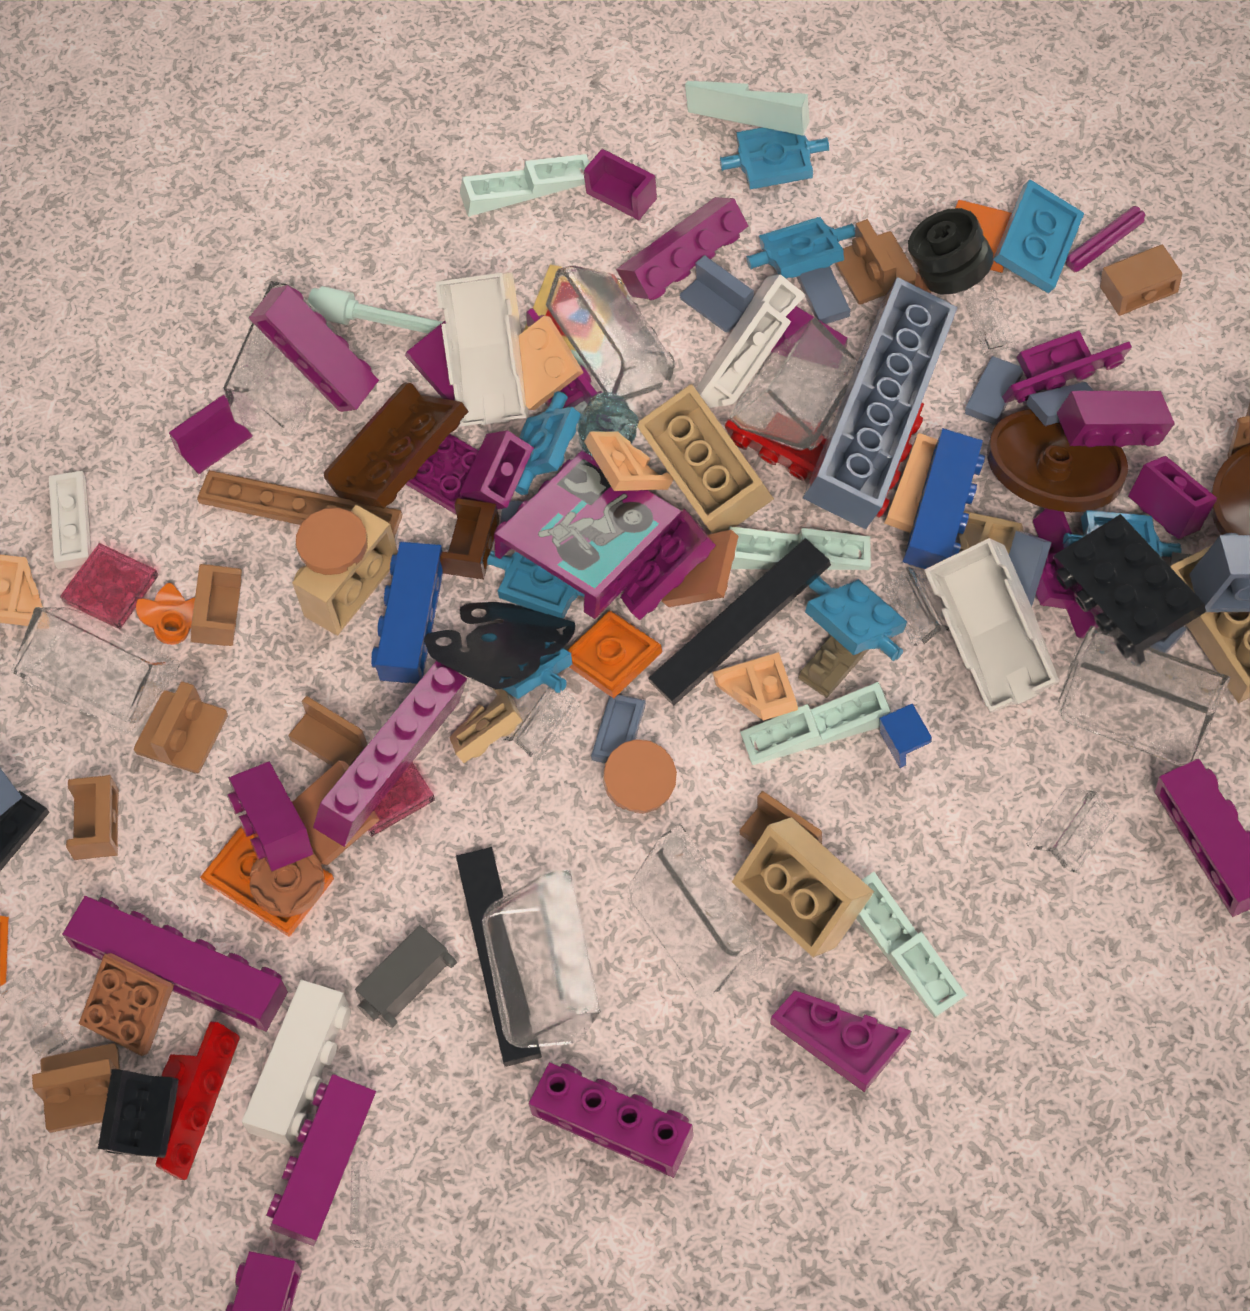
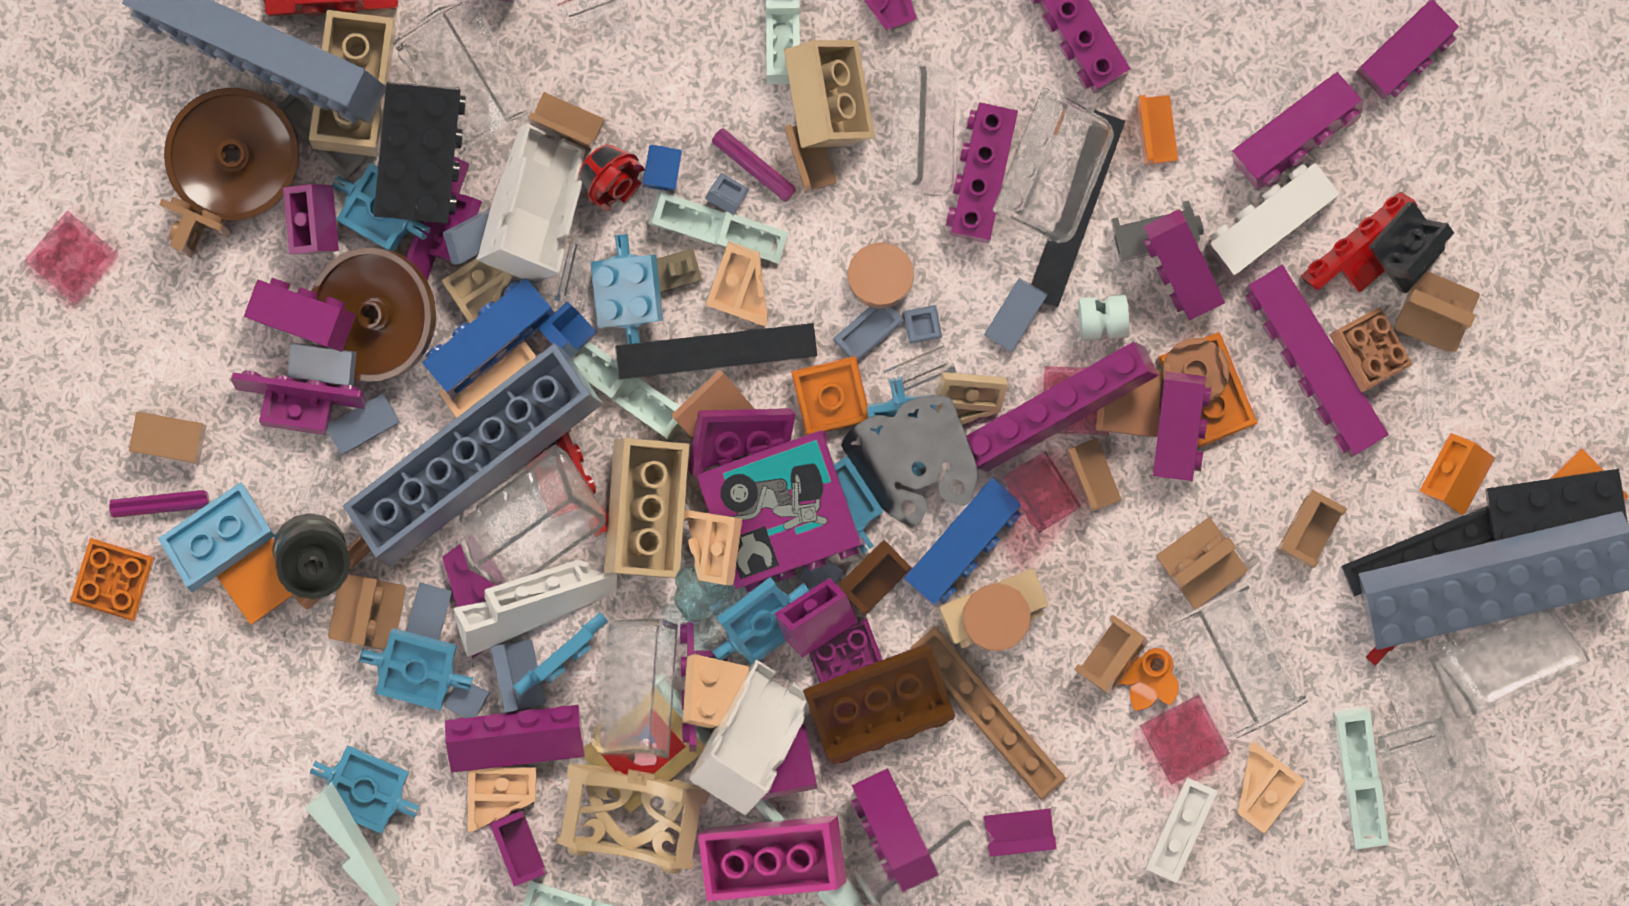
camera: 160 degrees left, 25 degrees up
(356, 952) = (1182, 265): none -> magenta brick
(363, 686) = (1042, 492): none -> clear pink tile
(394, 876) = (1103, 317): none -> light aqua wheel
(400, 282) = (772, 858): none -> dark pink brick
(468, 1075) = (1156, 129): none -> orange panel
(491, 823) = (1015, 314): none -> sand blue tile
(506, 247) = (674, 794): none -> tan fence
(572, 765) = (922, 324): none -> sand blue tile
(608, 925) = (983, 172): none -> magenta brick
(664, 211) = (498, 793): none -> light nougat wing
(690, 315) = (573, 648): none -> dark azure plate
(737, 259) = (467, 702): none -> sand blue tile
(828, 797) = (753, 164): none -> magenta axle
(831, 754) = (727, 193): none -> sand blue tile
(881, 555) = (568, 329): none -> blue panel
(947, 694) = (610, 176): none -> red cone
(1022, 719) = (566, 120): none -> medium nougat panel
(1093, 171) = (112, 579): none -> orange tile

